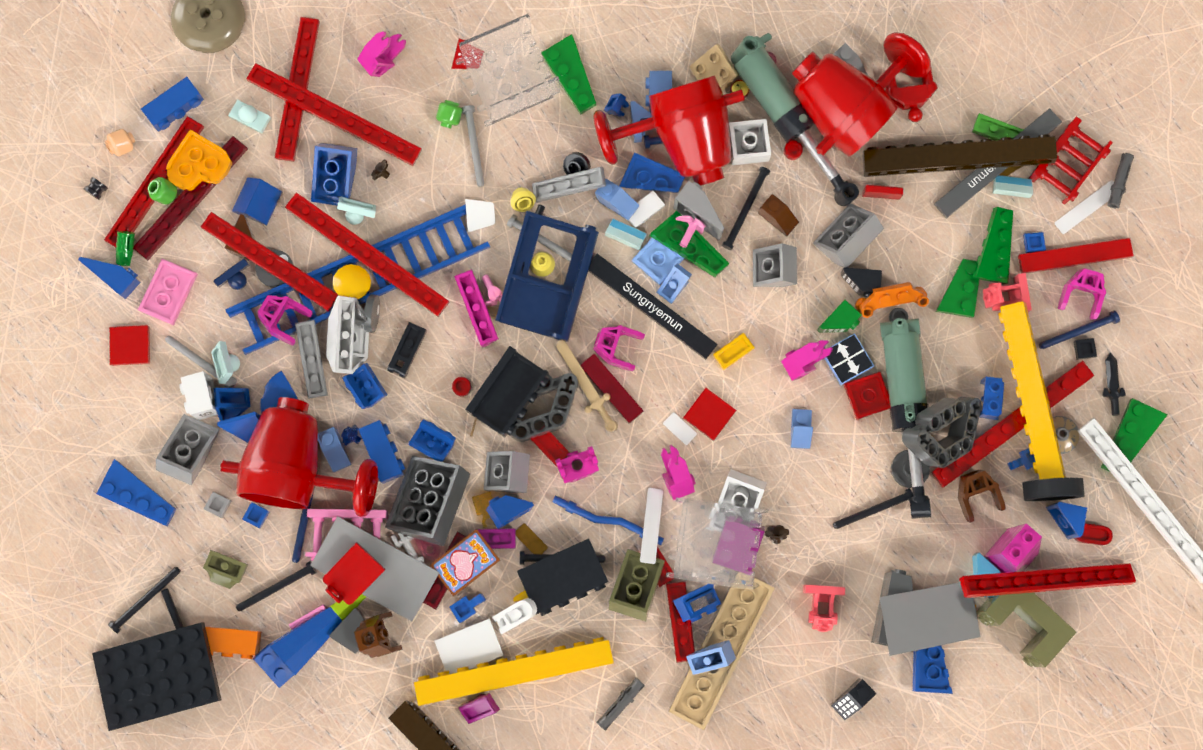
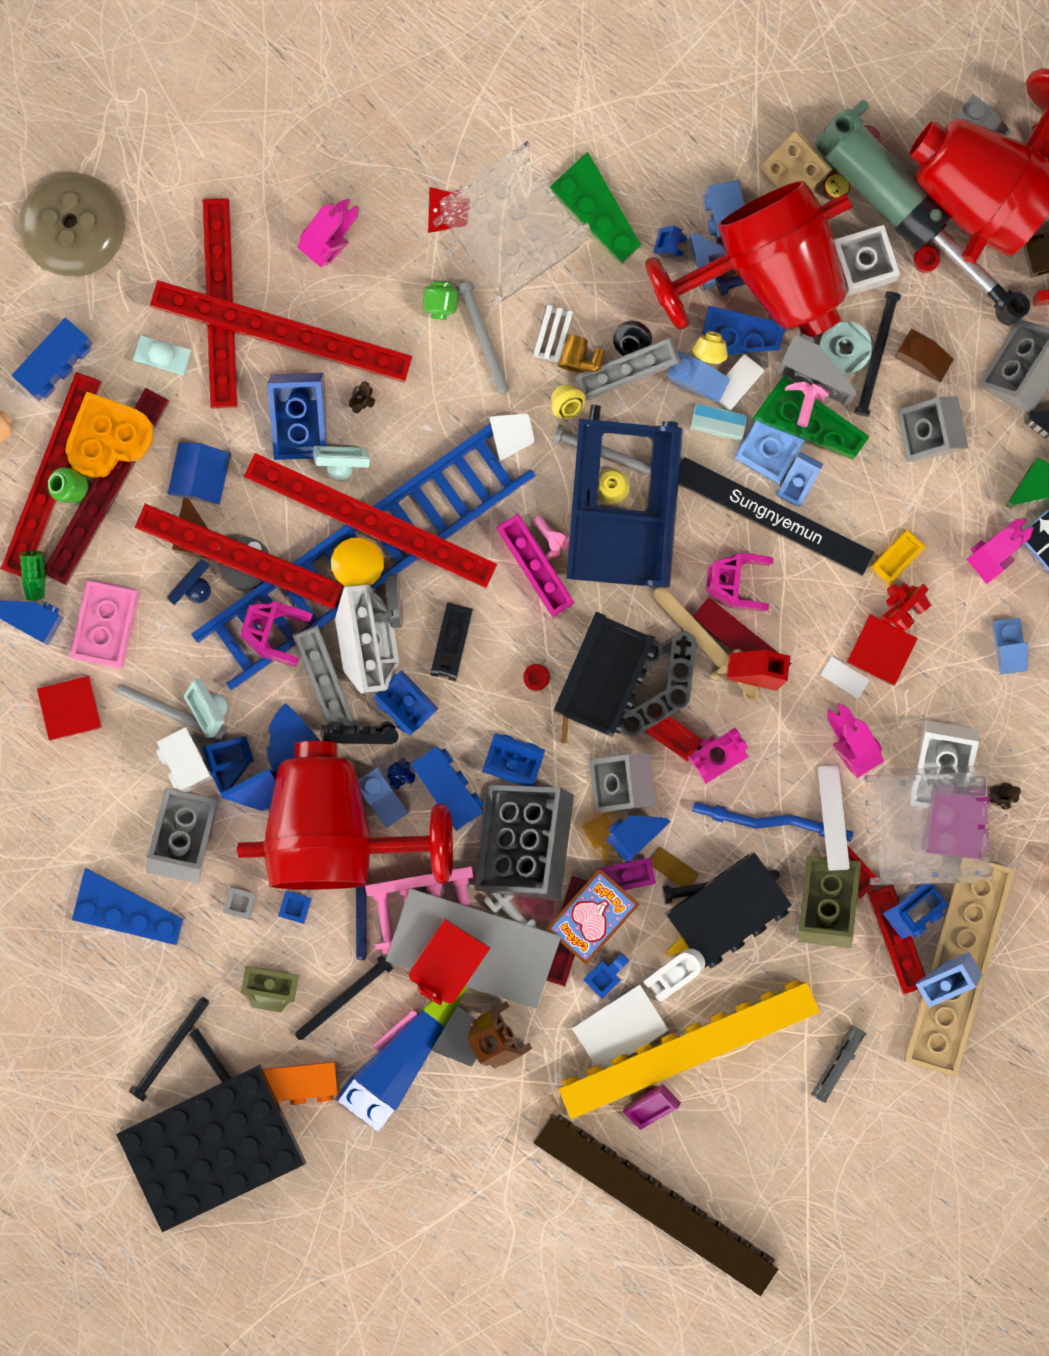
camera: 10 degrees left, 5 degrees up
(327, 401) = (359, 733): none -> black plate
(529, 139) = (559, 312): none -> white tile
(534, 169) = (574, 356): none -> pearl gold piece
(618, 409) = (759, 668): none -> red slope
(629, 180) = (710, 348): none -> light yellow cone
(729, 190) = (860, 346): none -> light aqua plate
(739, 381) = (901, 601): none -> red hips

